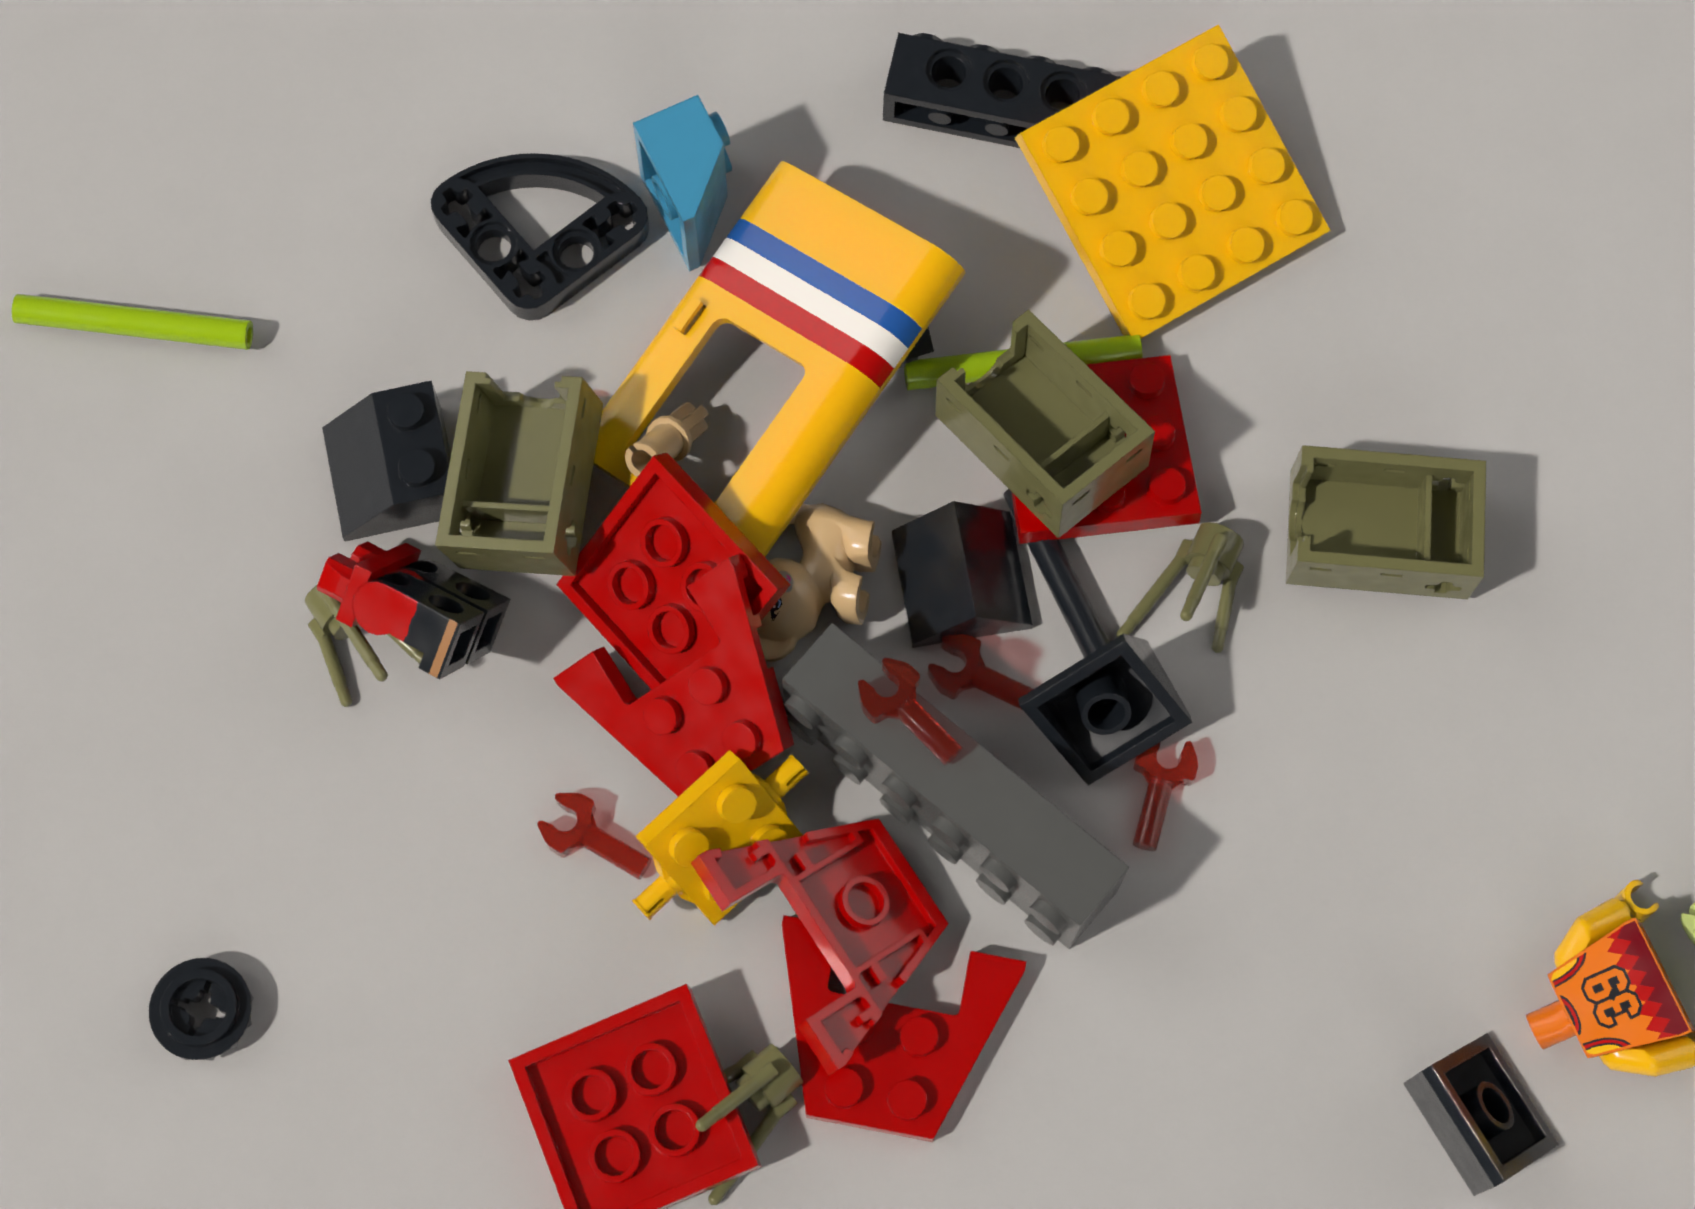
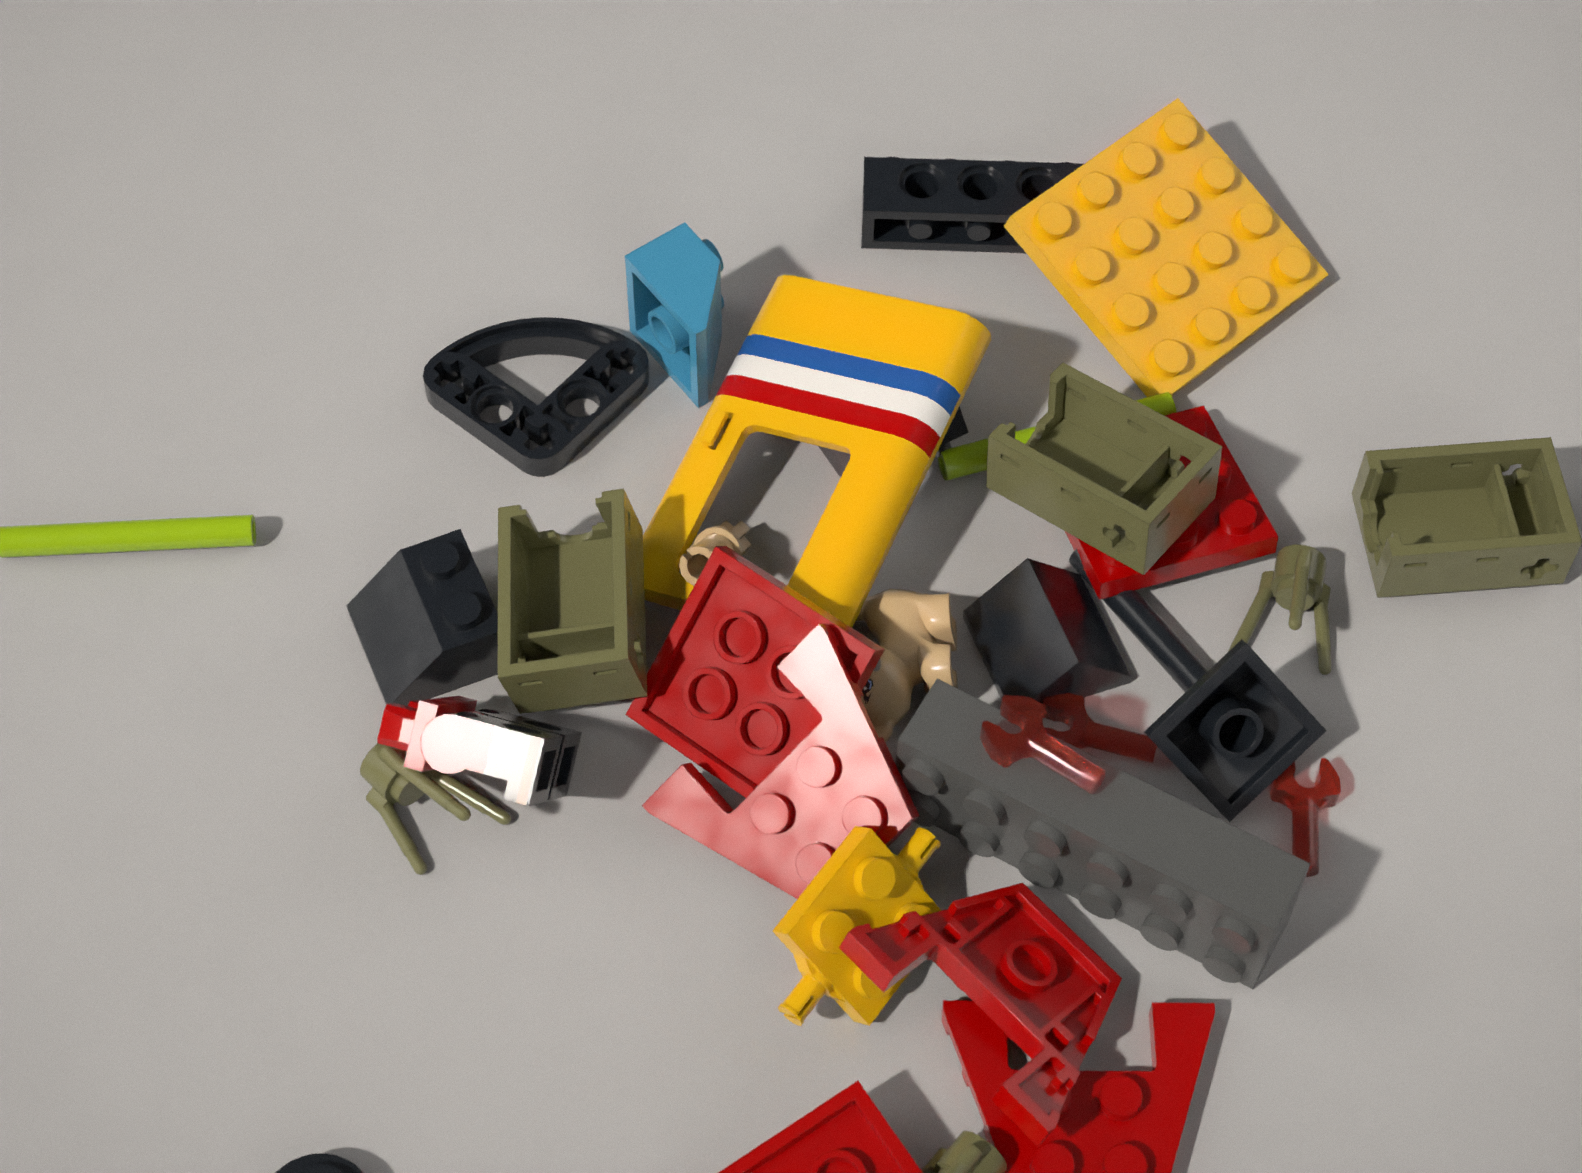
camera: 10 degrees left, 15 degrees down
(590, 836) = (712, 958): clear red bar -> none

